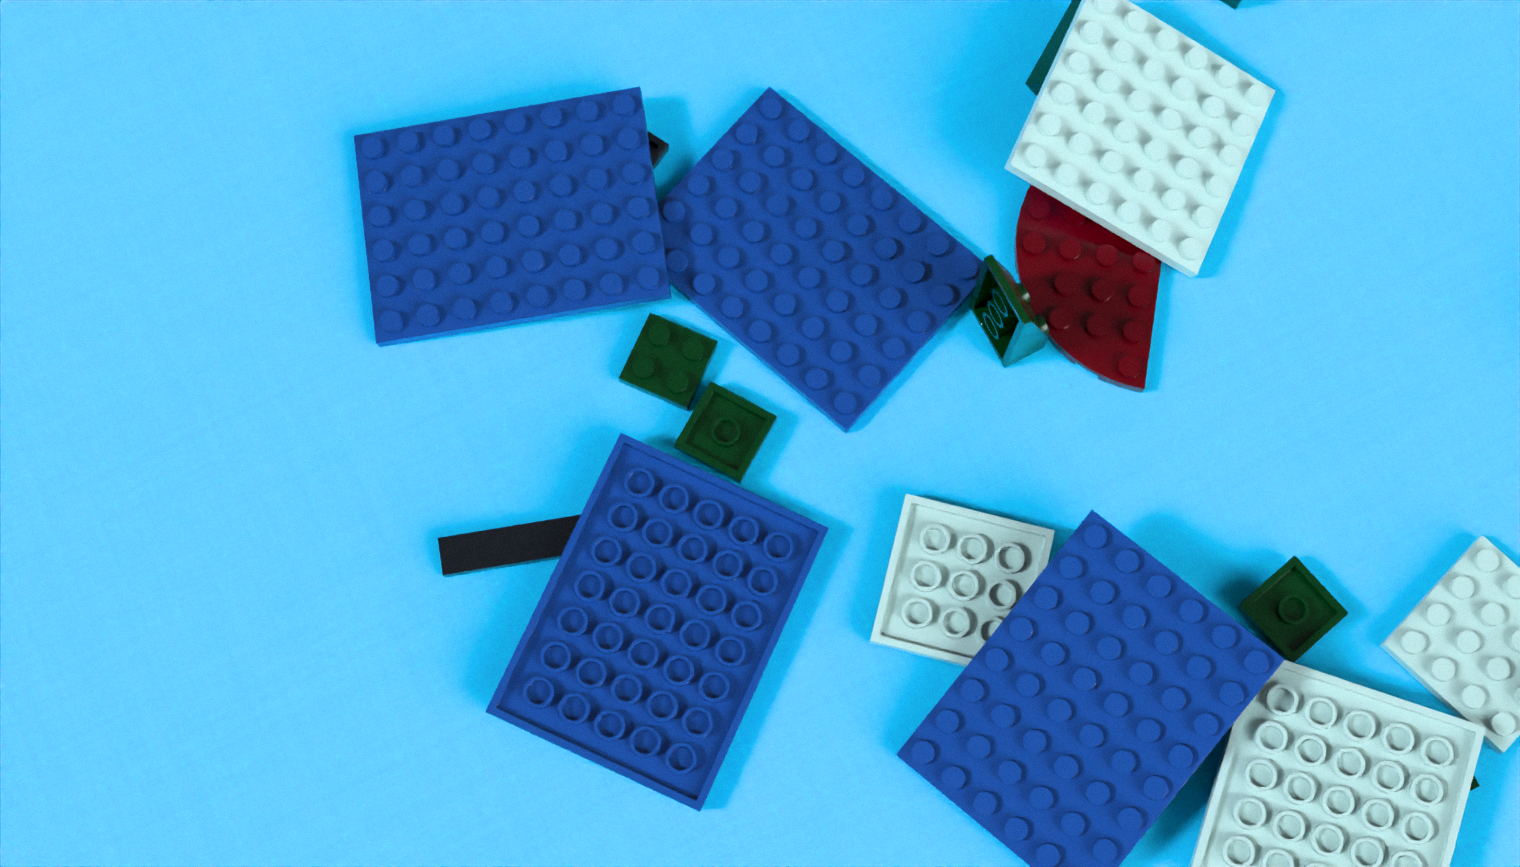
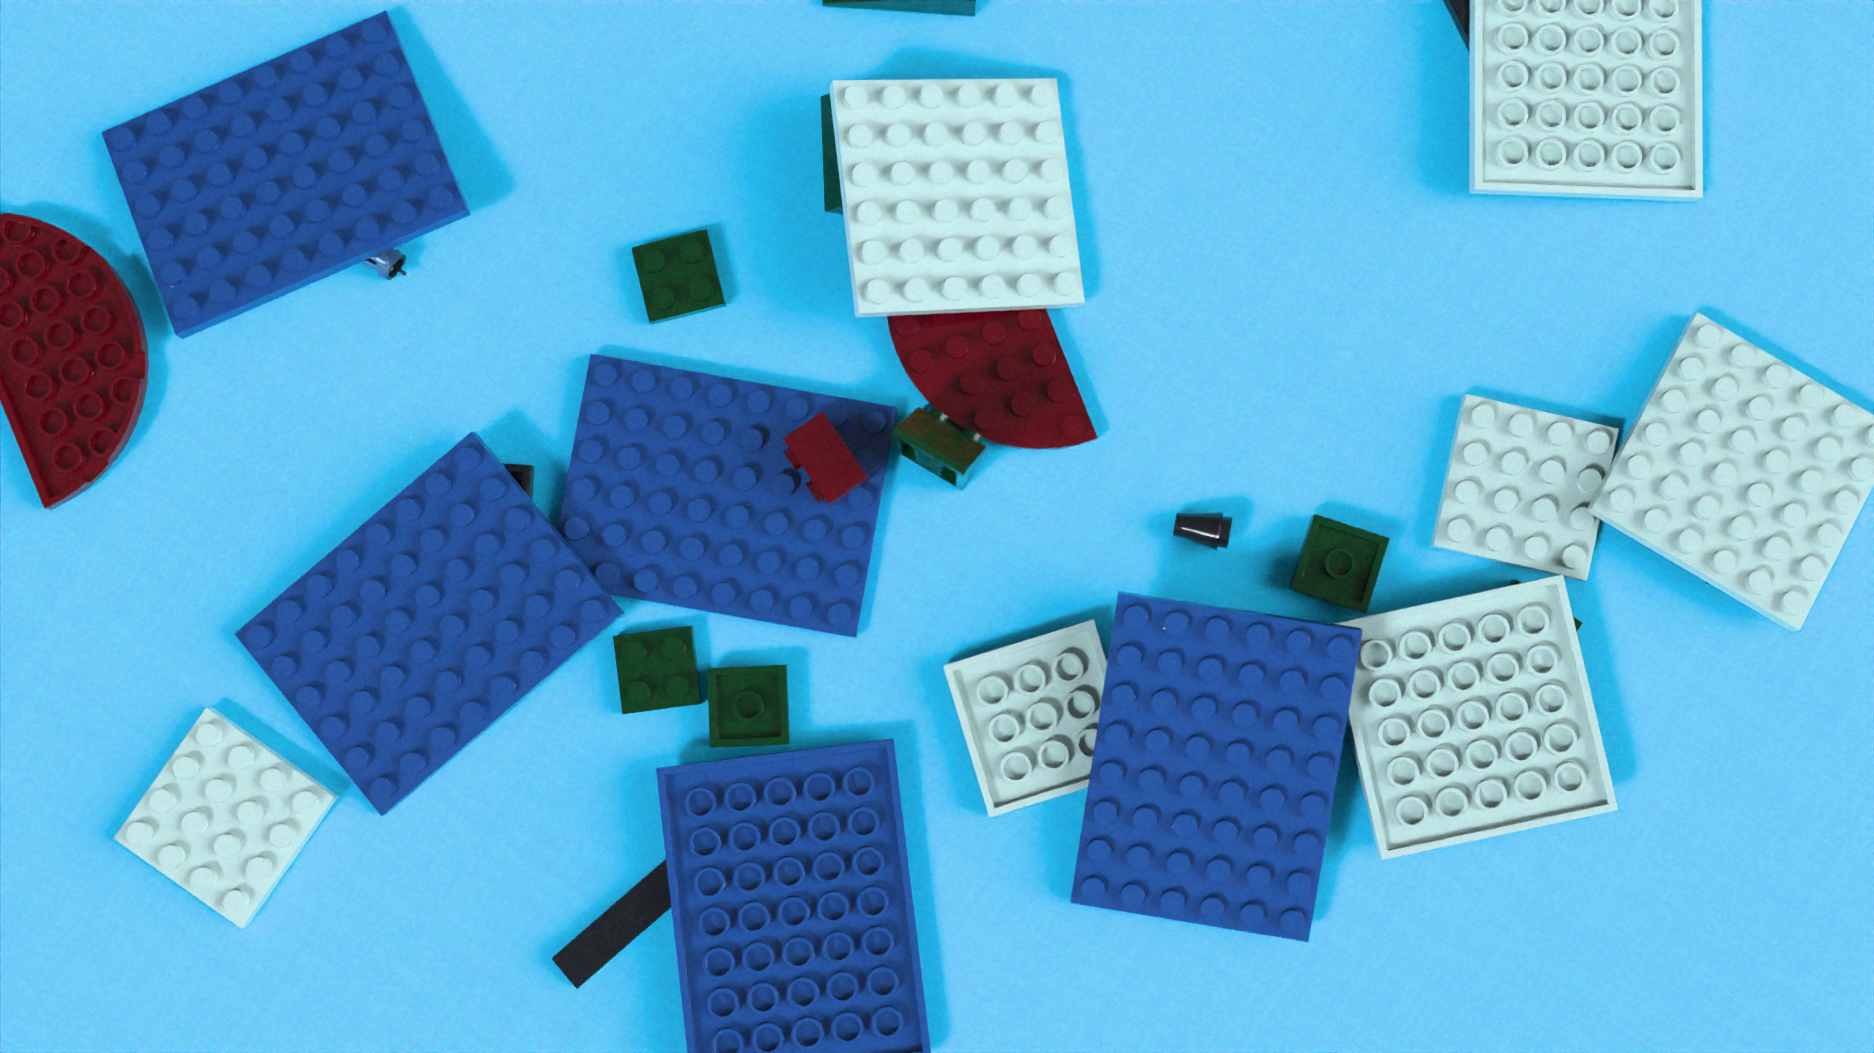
camera: 30 degrees left, 10 degrees up
(253, 273) = (226, 817): none -> light aqua plate
(875, 70) = (678, 277): none -> dark green plate
(910, 270) = (825, 459): none -> dark red brick
(1194, 515) = (1204, 528): none -> black cone

